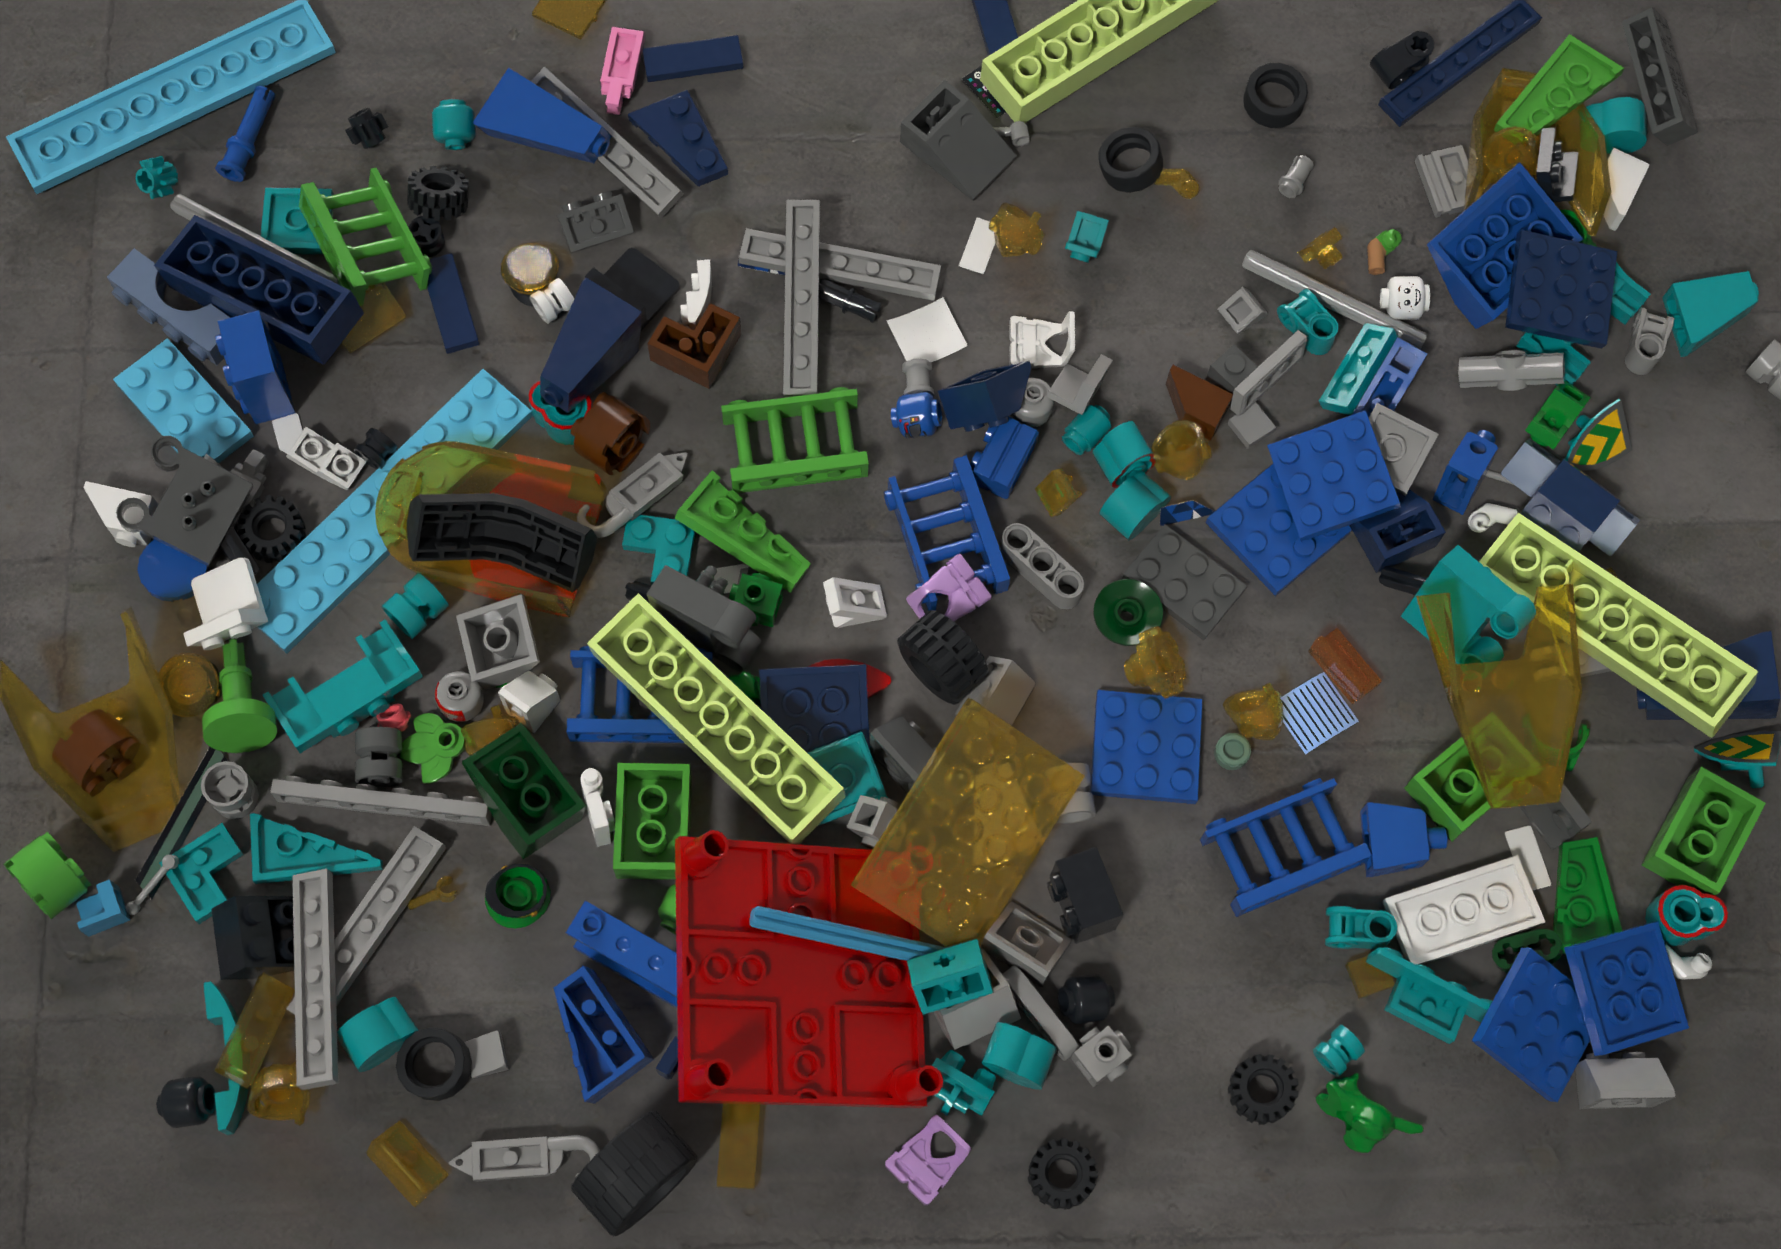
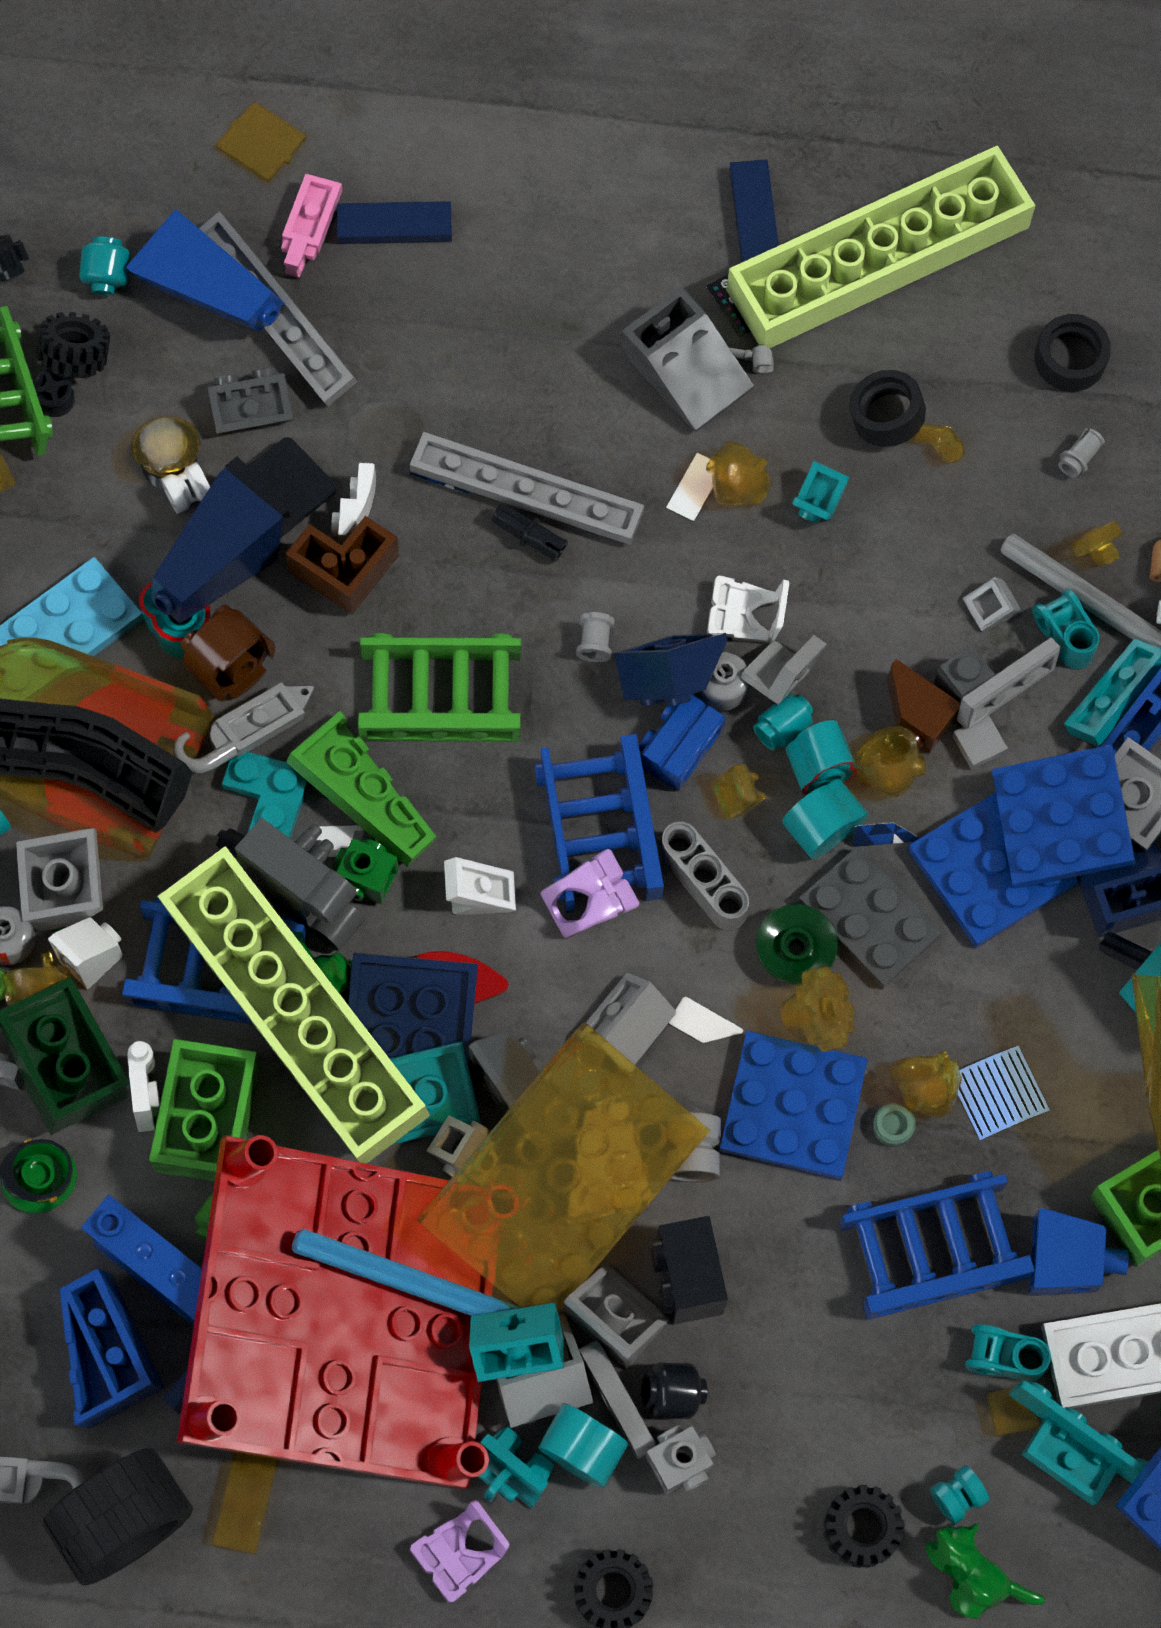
camera: 10 degrees right, 0 degrees up
(450, 305) = (69, 477): dark blue tile -> none
(683, 136) = (368, 312): dark blue wing -> none
(801, 298) = (474, 523): light grey plate -> none
(917, 415) = (587, 678): blue head -> none
(927, 332) = (617, 582): white sticker -> none
(943, 657) = (569, 968): black tyre -> none
(1058, 688) = (702, 1022): none -> white sticker
(1344, 665) = (1042, 1042): clear orange panel -> none

